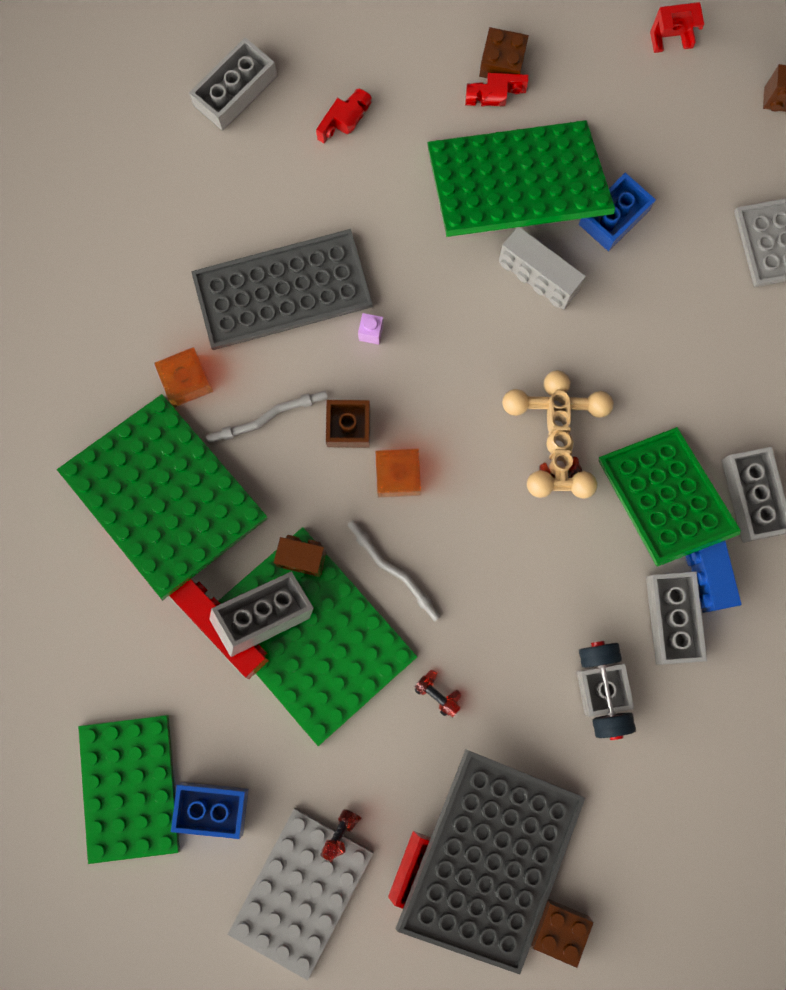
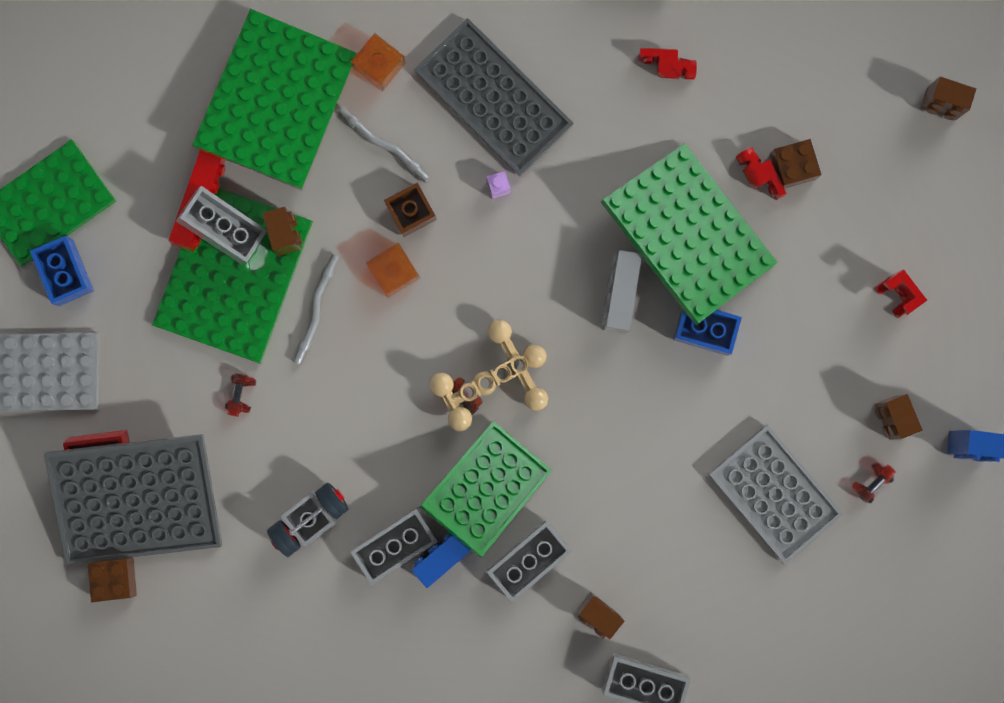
camera: 60 degrees right, 5 degrees up
(334, 847) = (82, 377): clear red piece -> none

